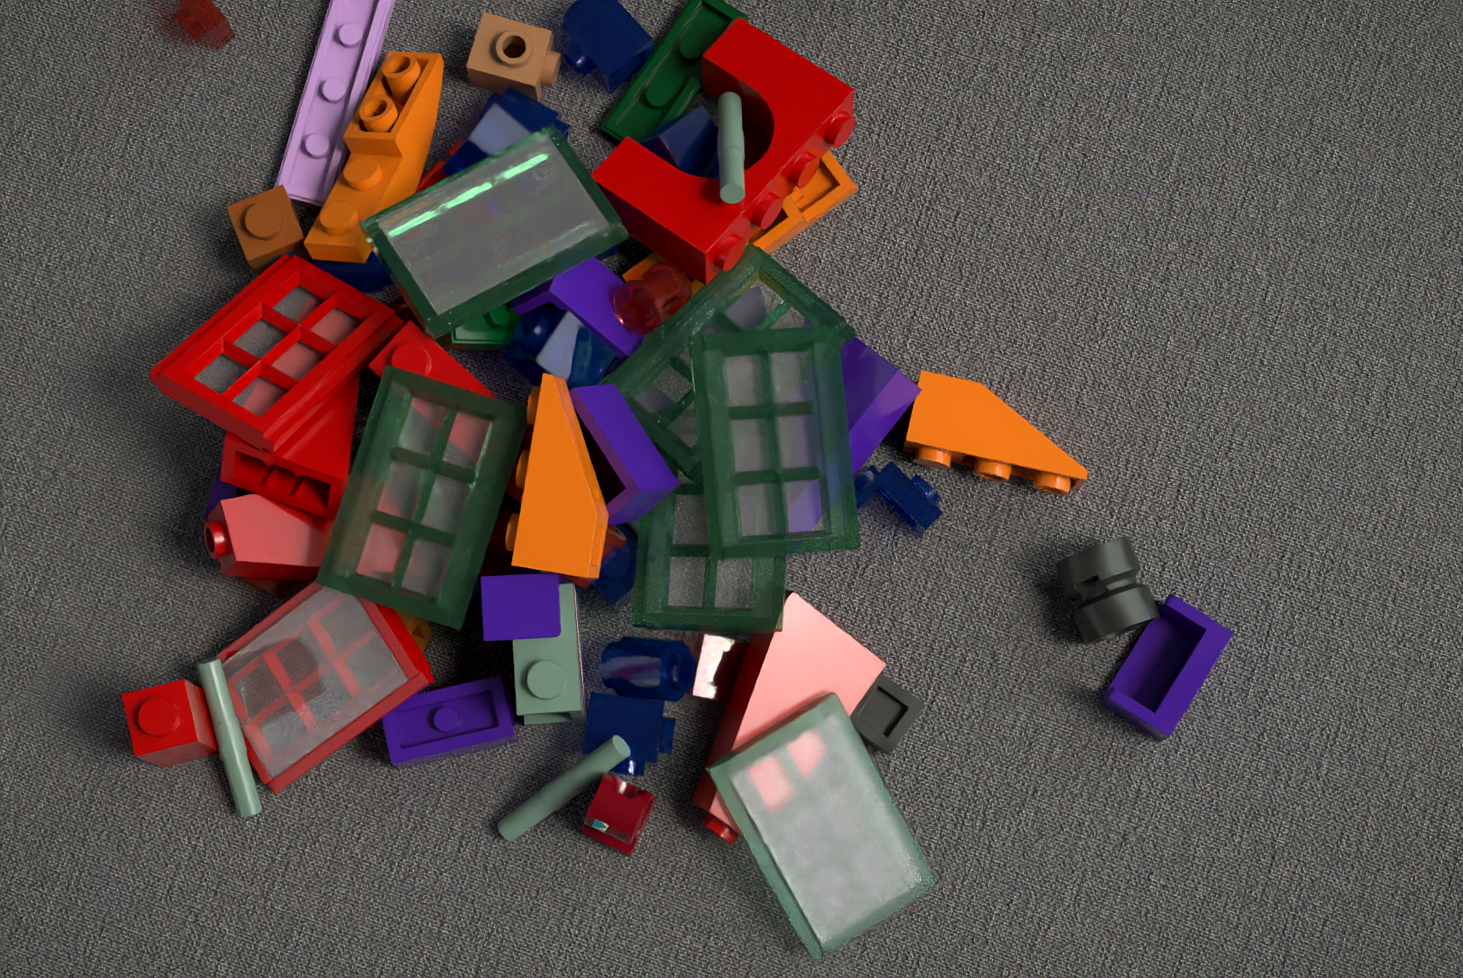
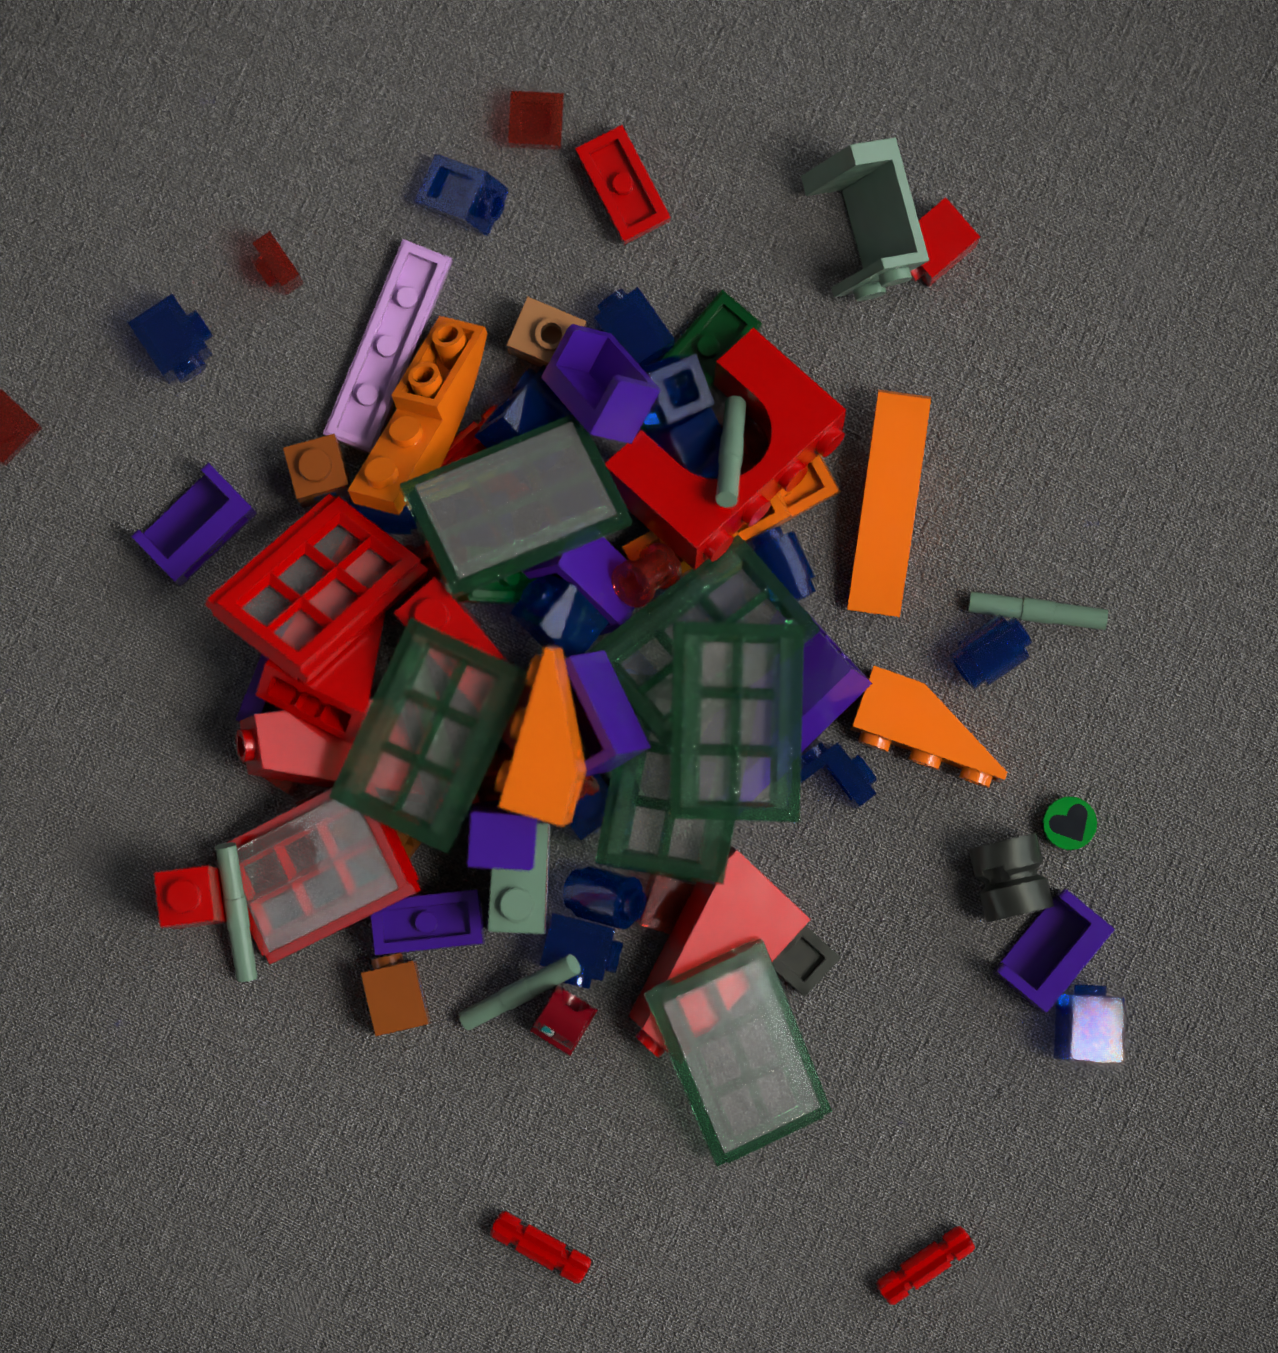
camera: 10 degrees right, 5 degrees up
(93, 108) = (173, 339): none -> clear blue brick
(141, 312) = (195, 526): none -> dark purple panel
(421, 810) = (395, 995): none -> dark orange brick
(575, 90) = (600, 383): none -> dark purple panel
(654, 91) = (681, 386): none -> clear blue brick
(809, 265) = (786, 560): none -> clear blue brick
(914, 193) = (889, 503): none -> orange slope
(1050, 342) = (991, 651): none -> clear blue brick
(1095, 293) = (1038, 610): none -> sand green piece
(1163, 524) = (1069, 823): none -> green tile
(1218, 747) = (1089, 1025): none -> clear blue brick

